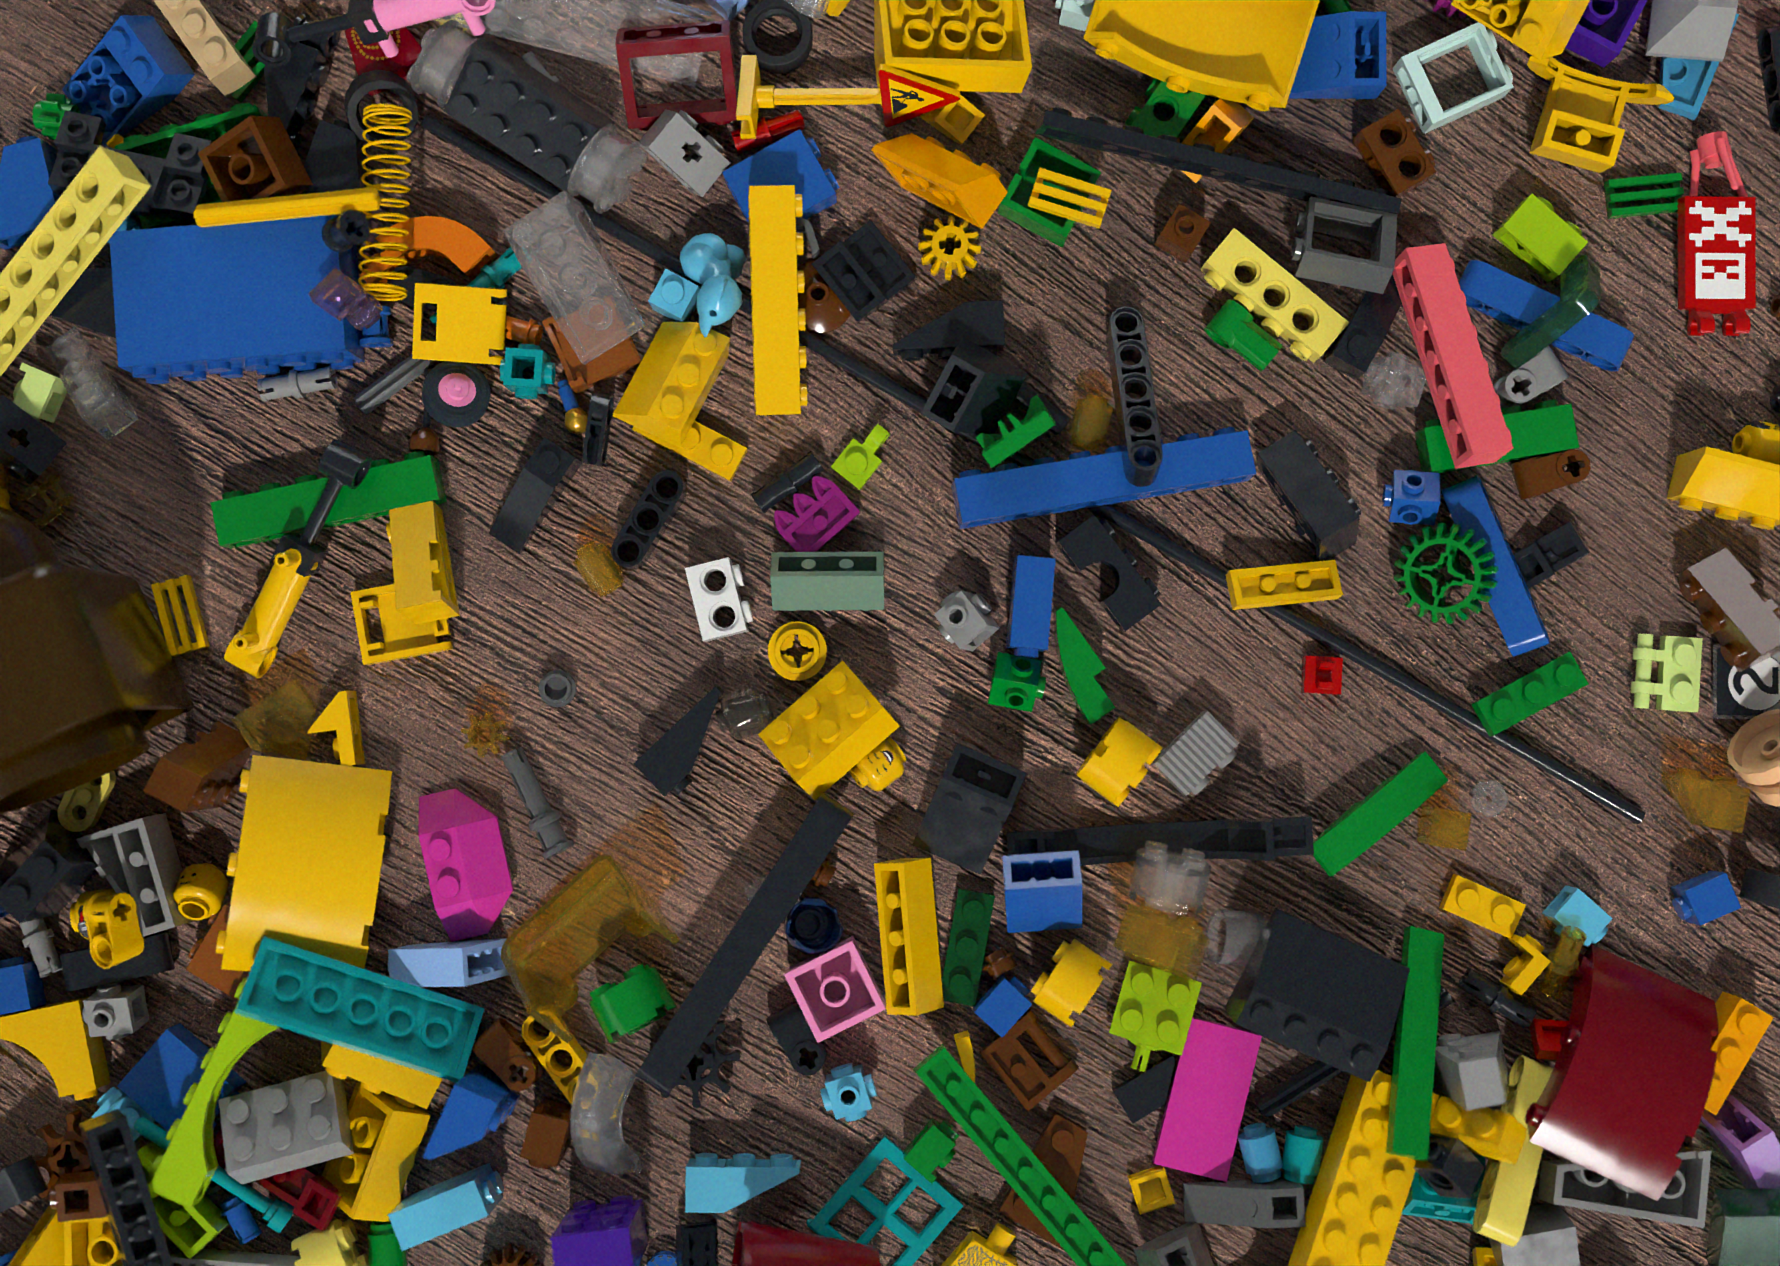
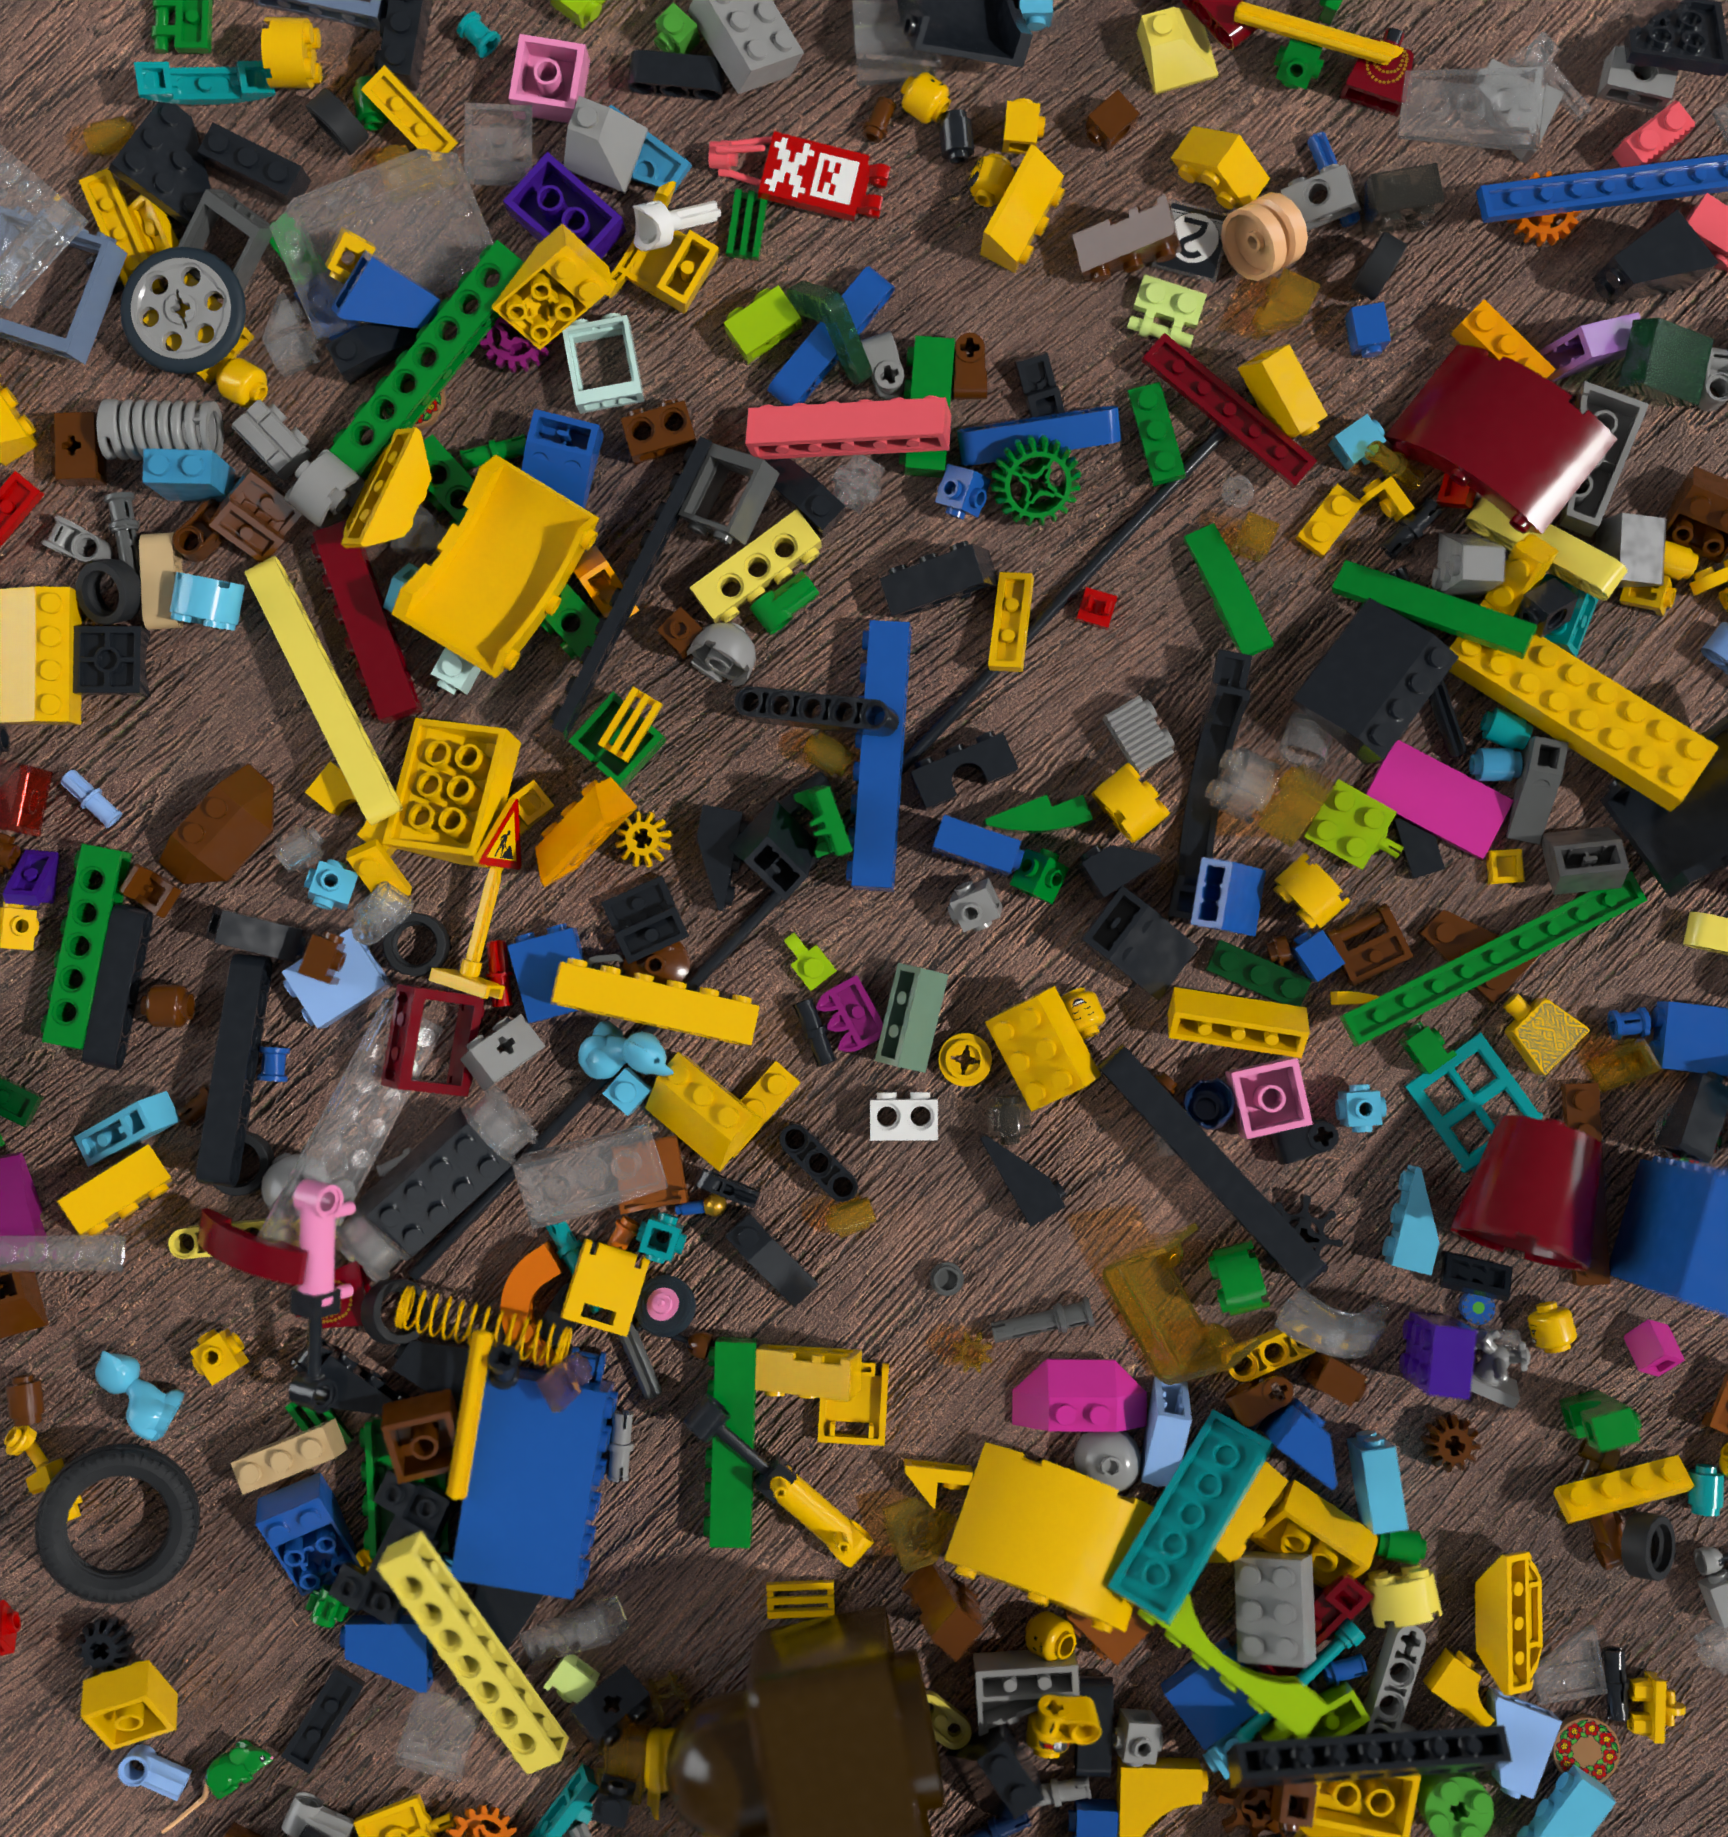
camera: 80 degrees left, 0 degrees up
(404, 909) = (1109, 1458): none -> light grey cylinder
(1044, 759) = (1113, 867): none -> black slope
(1172, 282) = (723, 652): none -> light grey cylinder
(1576, 766) = (1229, 410): none -> dark red plate
(1612, 820) = (1283, 391): none -> yellow brick
(1621, 94) = (657, 224): none -> white piece

